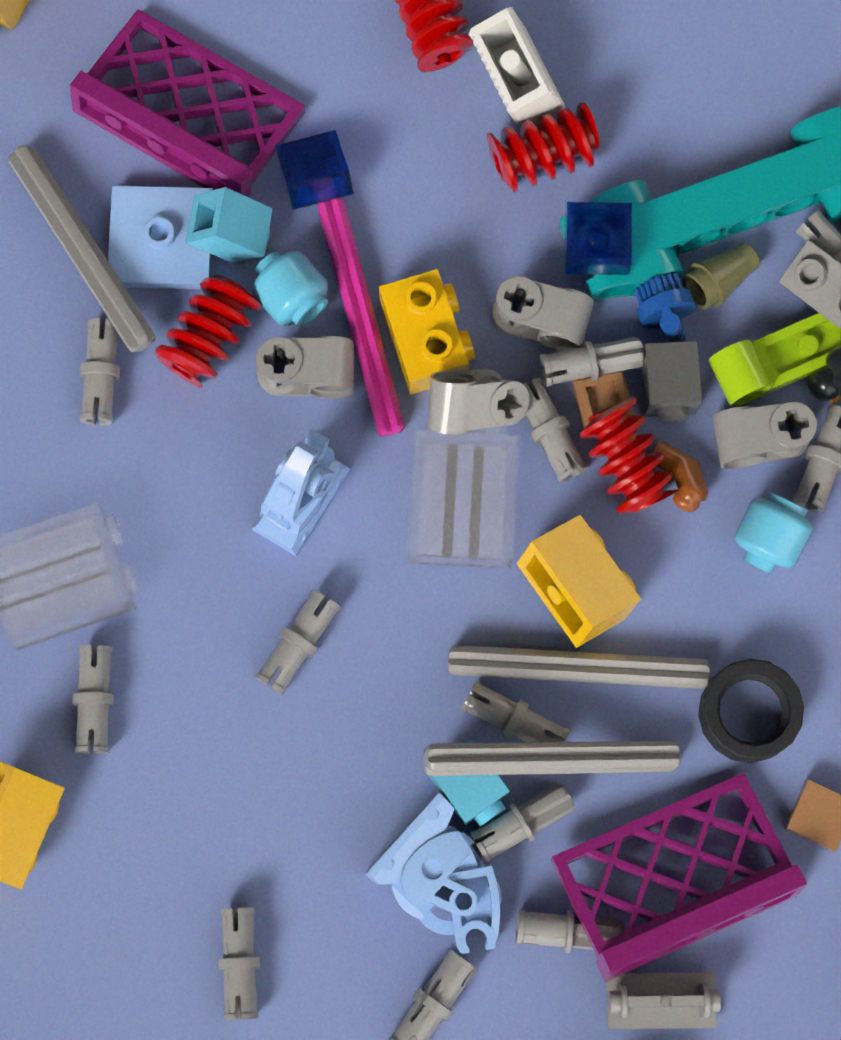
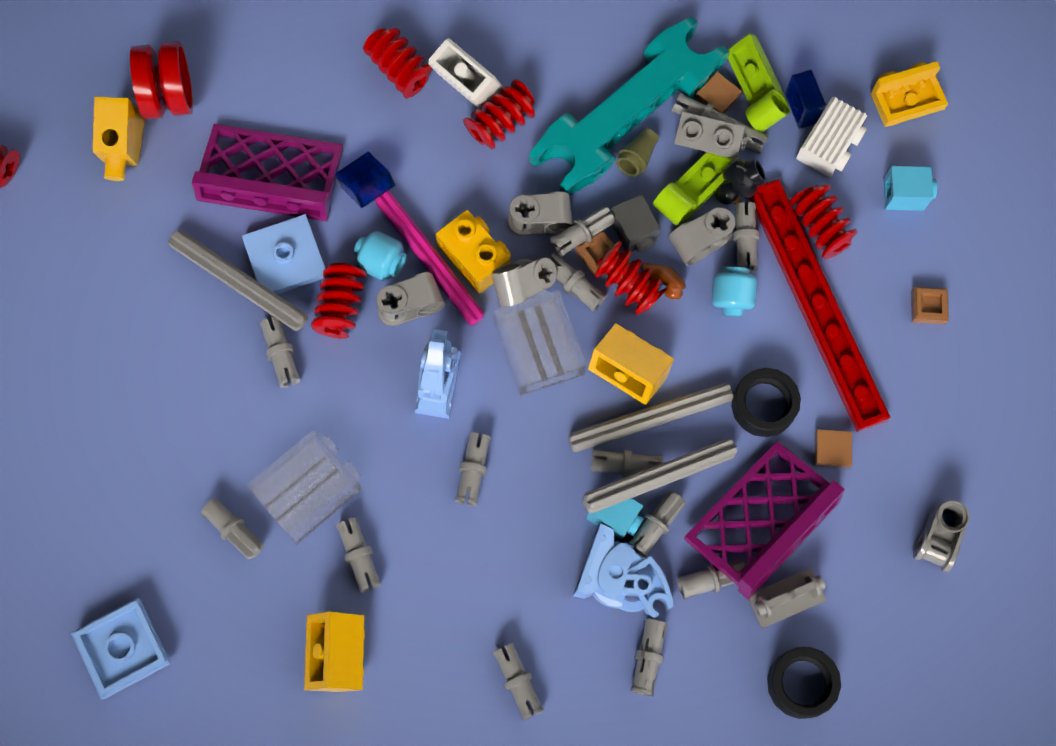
camera: 25 degrees left, 5 degrees down
(229, 225) = (326, 231): medium azure brick -> none
(598, 238) = (558, 155): clear blue piece -> none
(664, 305) = (612, 181): blue piece -> none

